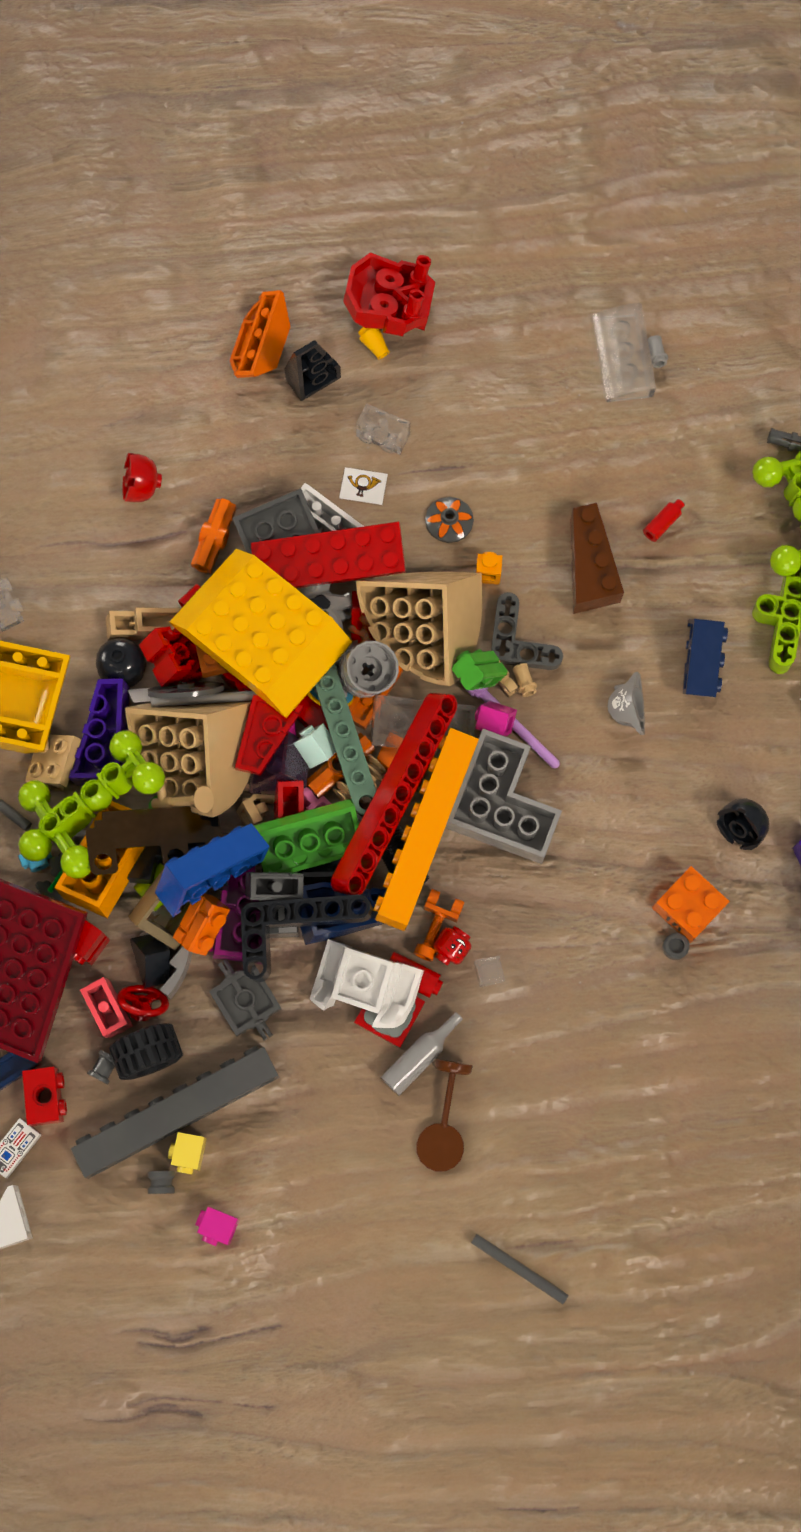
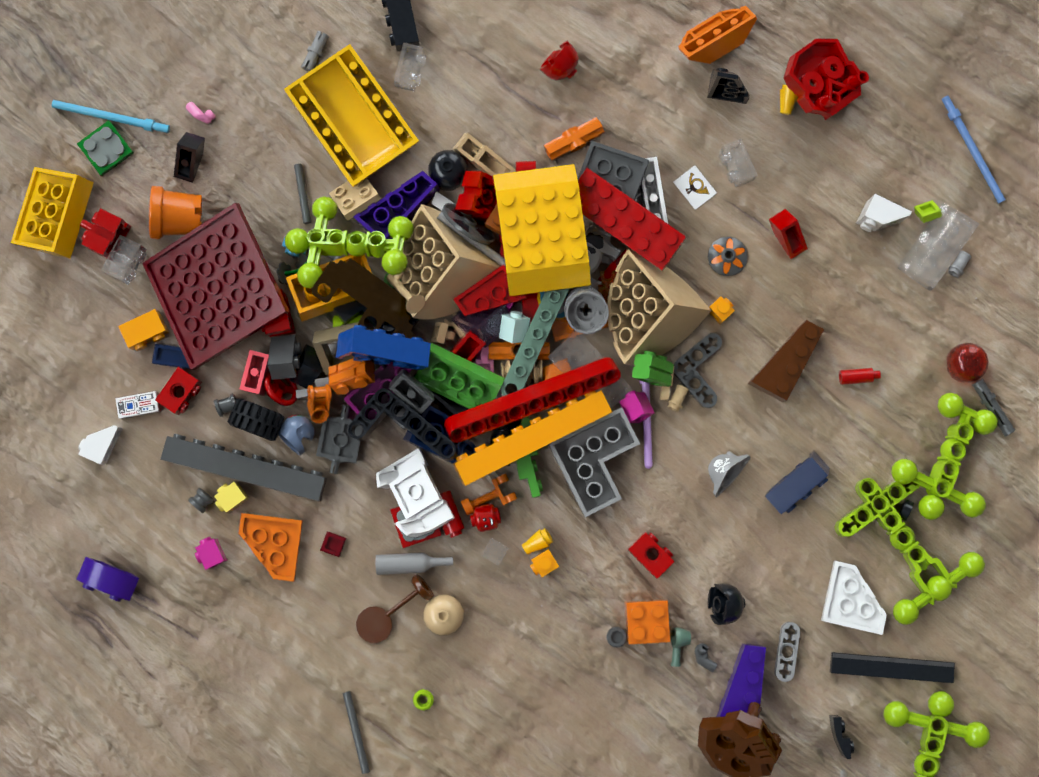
camera: 40 degrees right, 10 degrees up
(120, 968) = (284, 357): none -> dark grey brick
(136, 1347) = (108, 579): none -> dark purple brick
(193, 979) = (319, 402): none -> orange piece
(194, 1027) = (293, 431): none -> sand blue helmet
(270, 1158) = (273, 542): none -> orange plate
(329, 1106) = (333, 544): none -> dark red tile
(447, 864) = (527, 468): none -> bright green slope
(484, 451) = (788, 233): none -> red slope
(497, 1075) = (443, 614): none -> tan cylinder
(520, 924) = (538, 541): none -> yellow cone
(530, 234) = (954, 115): none -> medium blue bar
(546, 938) = (544, 563): none -> light orange brick
(549, 364) = (880, 214): none -> white slope
(563, 1175) = (423, 706): none -> lime plate
(587, 331) = (928, 211): none -> lime plate
(621, 848) = (660, 563): none -> red brick
(735, 892) = (679, 639): none -> sand green bar
(745, 427) = (967, 362): none -> clear red cylinder
(770, 893) = (702, 657): none -> dark grey arm

